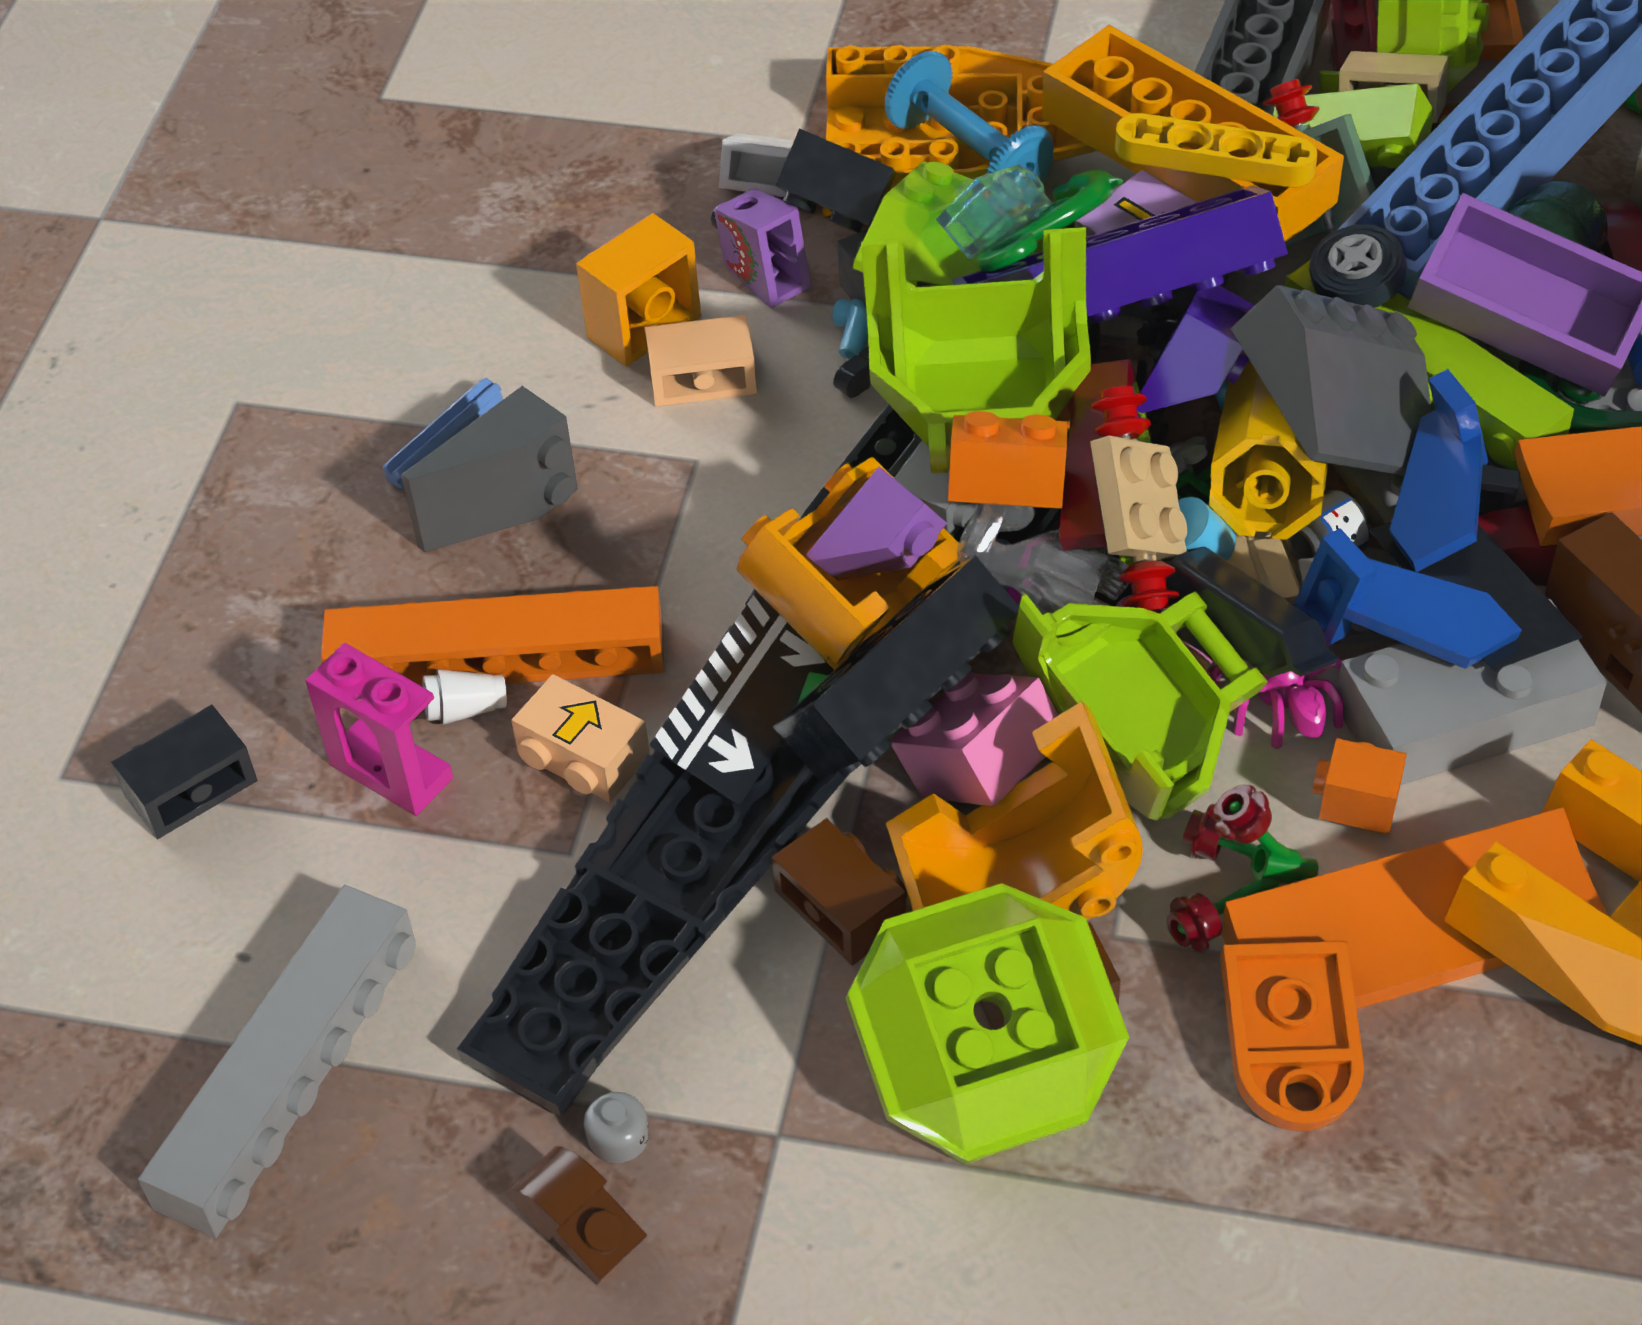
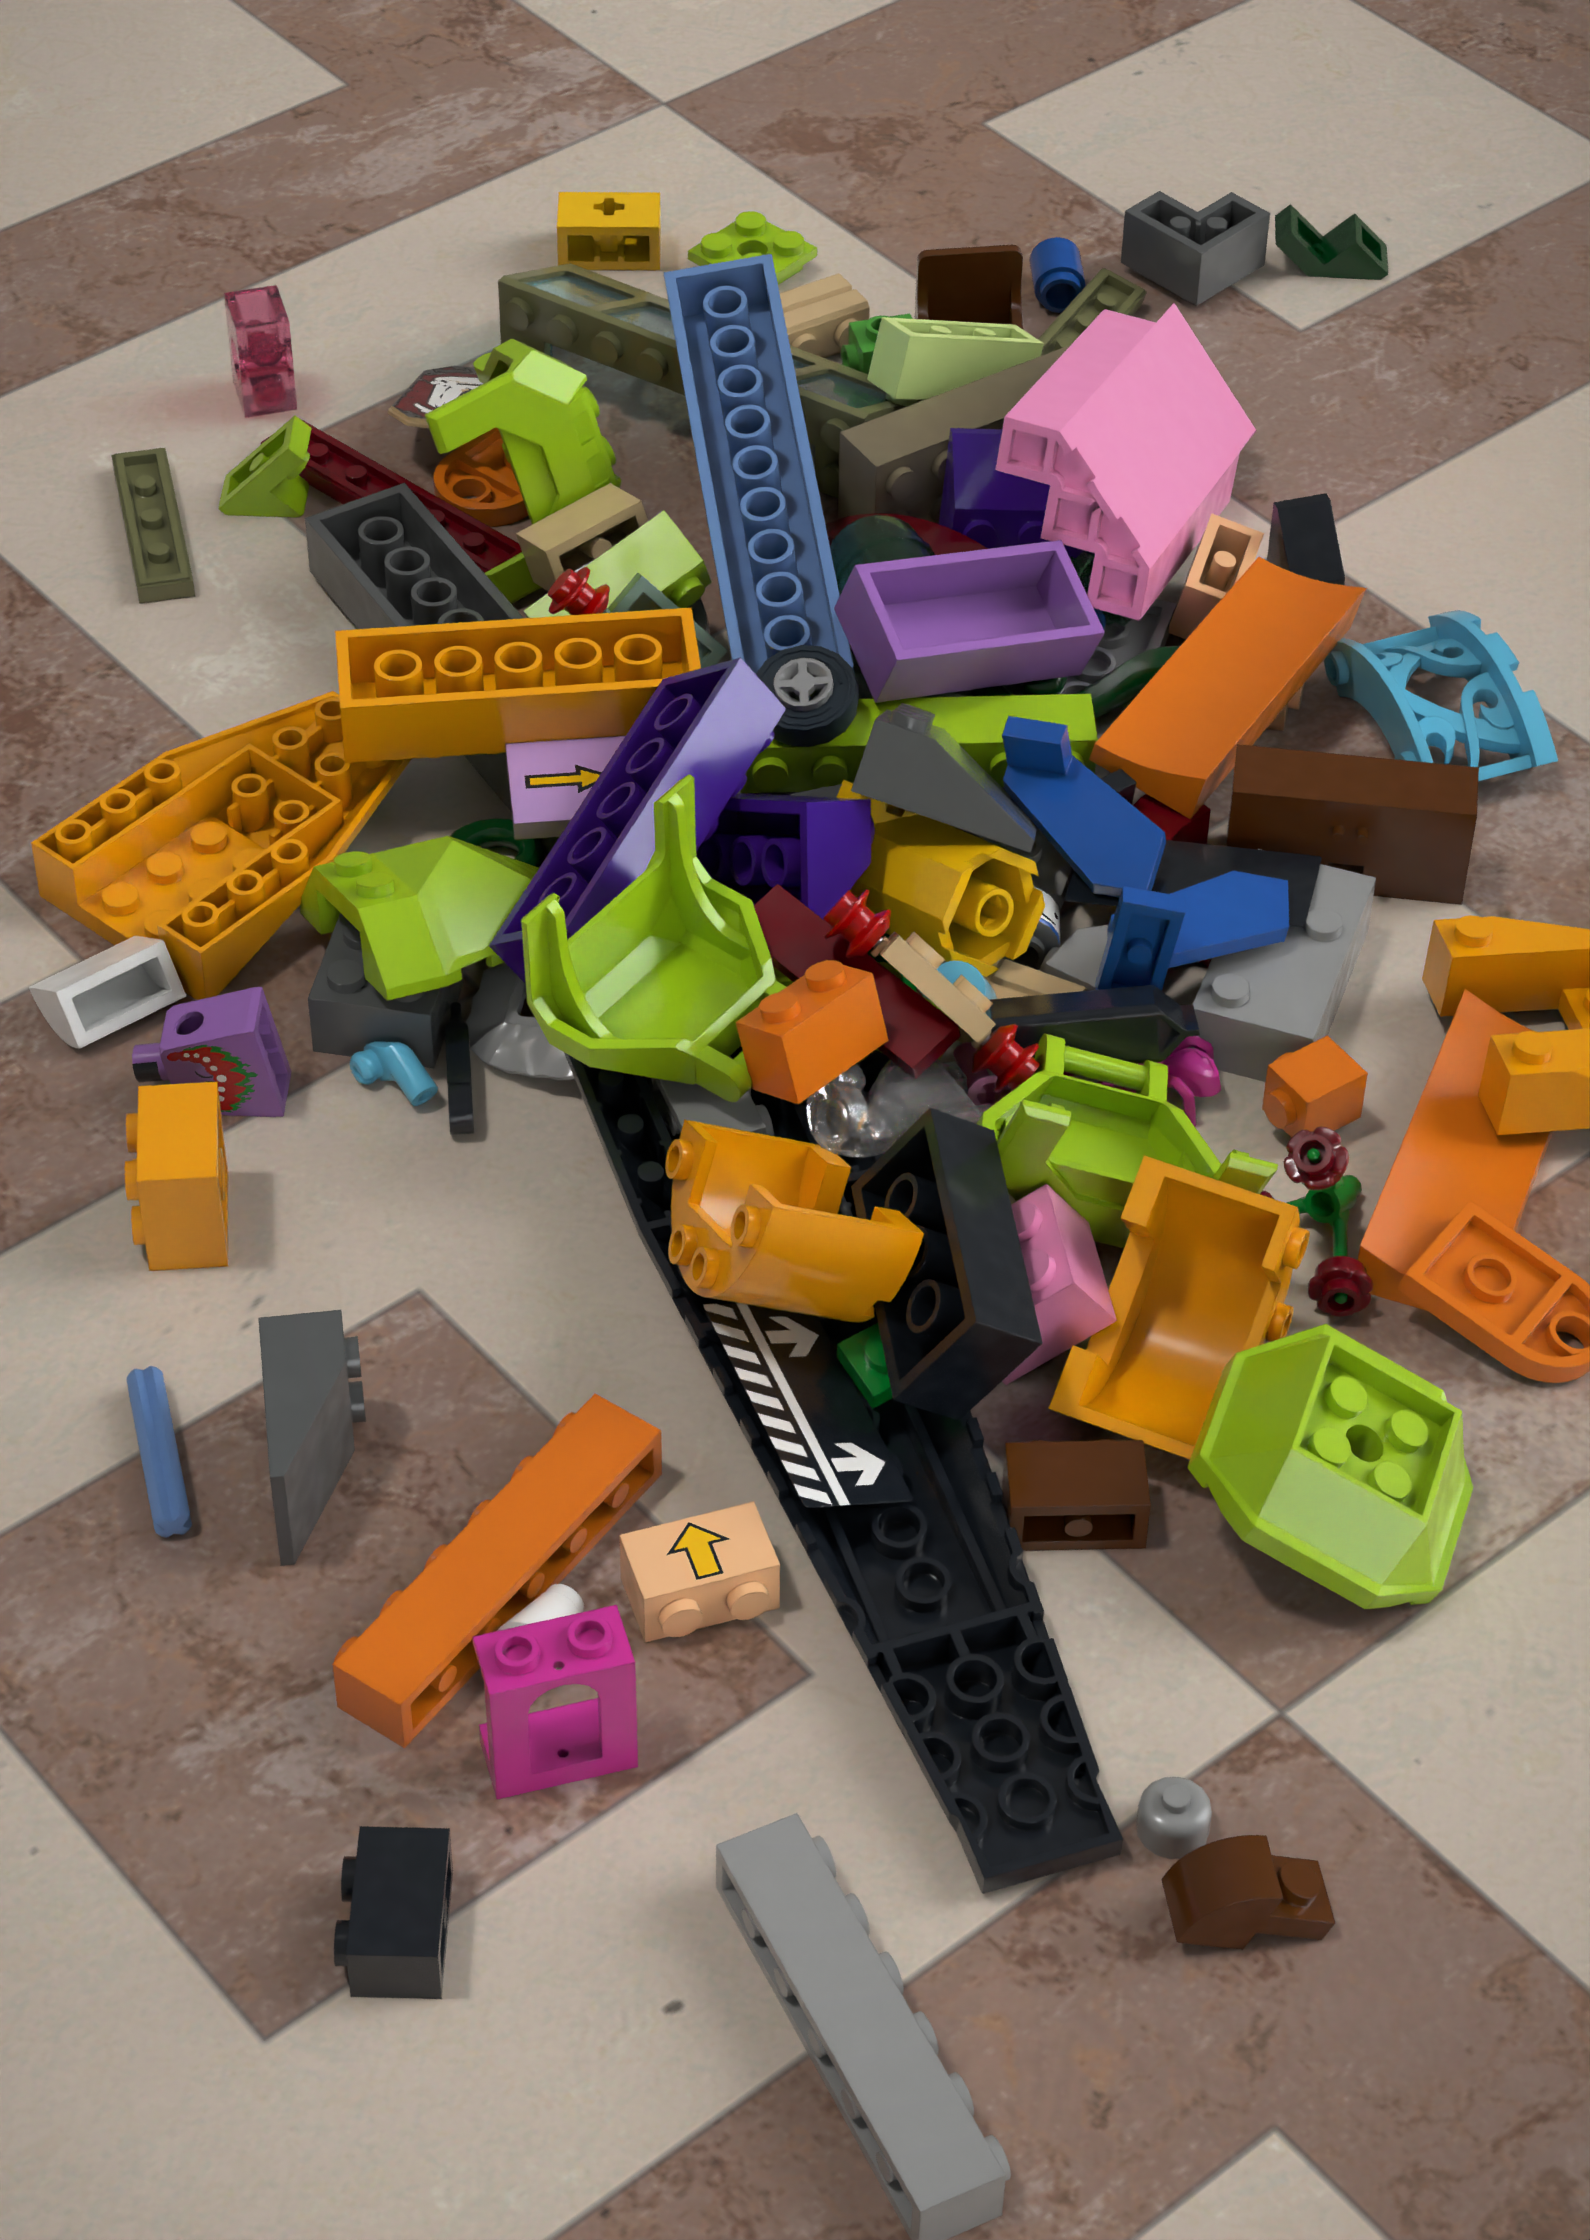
camera: 55 degrees left, 5 degrees down
(701, 360) = (311, 1198): light nougat brick -> none
(834, 179) = (253, 941): black brick -> none
(877, 531) = (781, 1152): medium lavender slope -> none
(922, 92) = (281, 816): dark azure hose -> none
(993, 209) = (481, 849): clear light blue slope -> none
(1073, 201) = (511, 826): green plant -> none
(1290, 161) = (536, 698): yellow beam -> none

